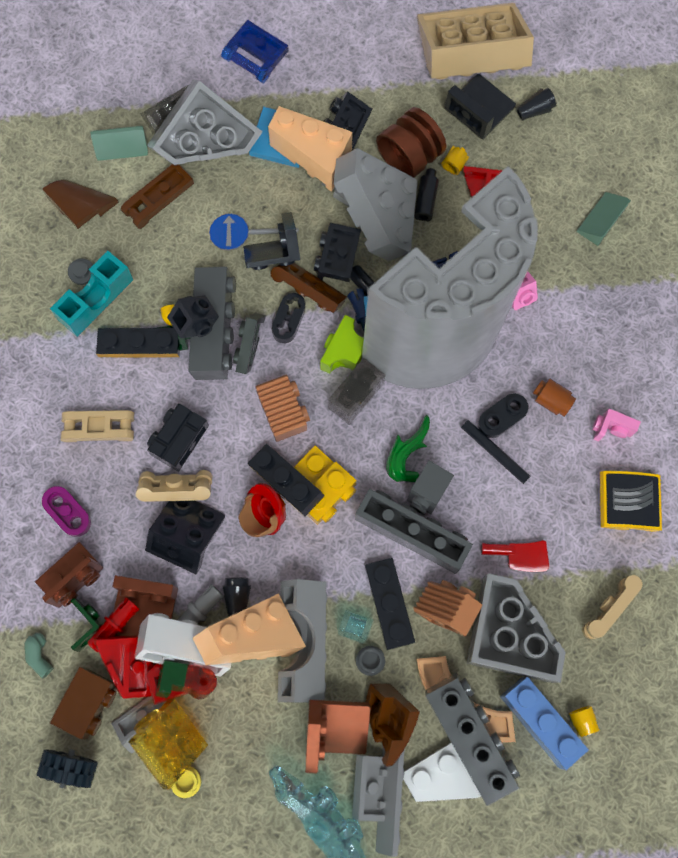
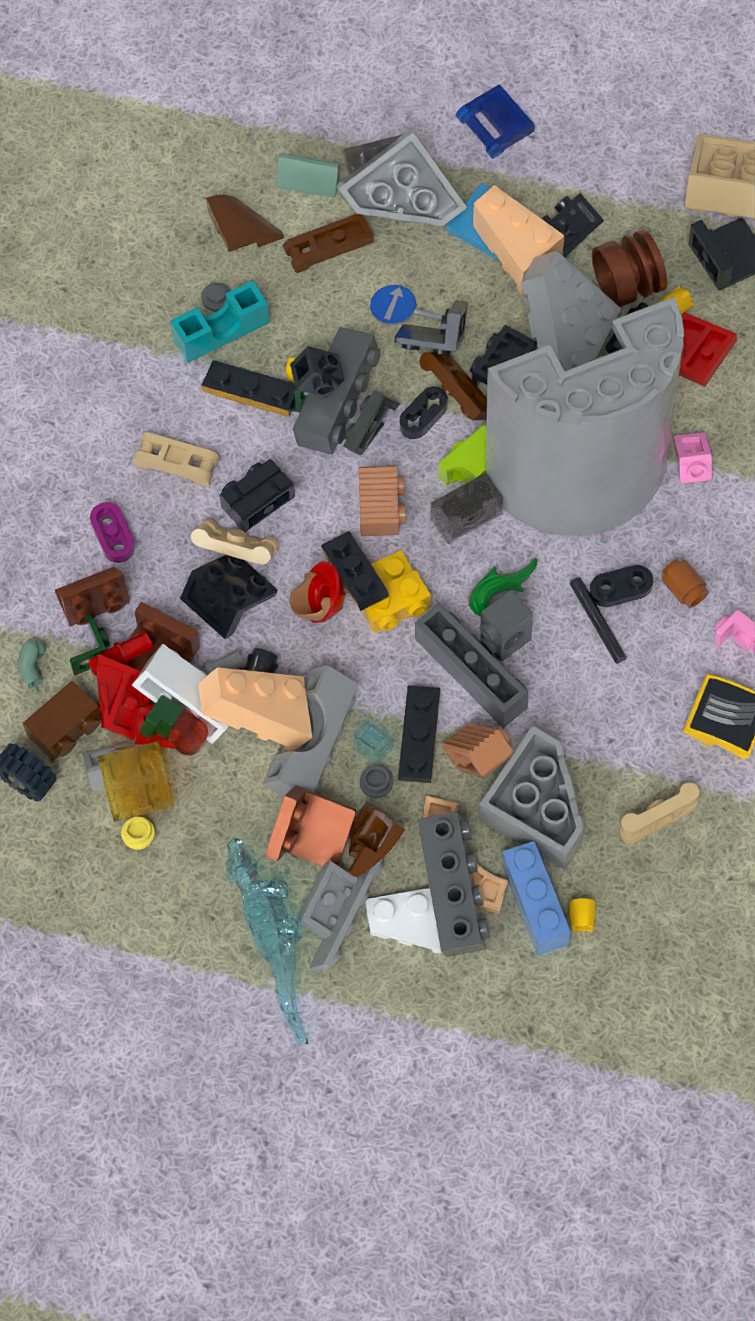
camera: 25 degrees right, 10 degrees down
(521, 556) = (582, 734): red piece -> none

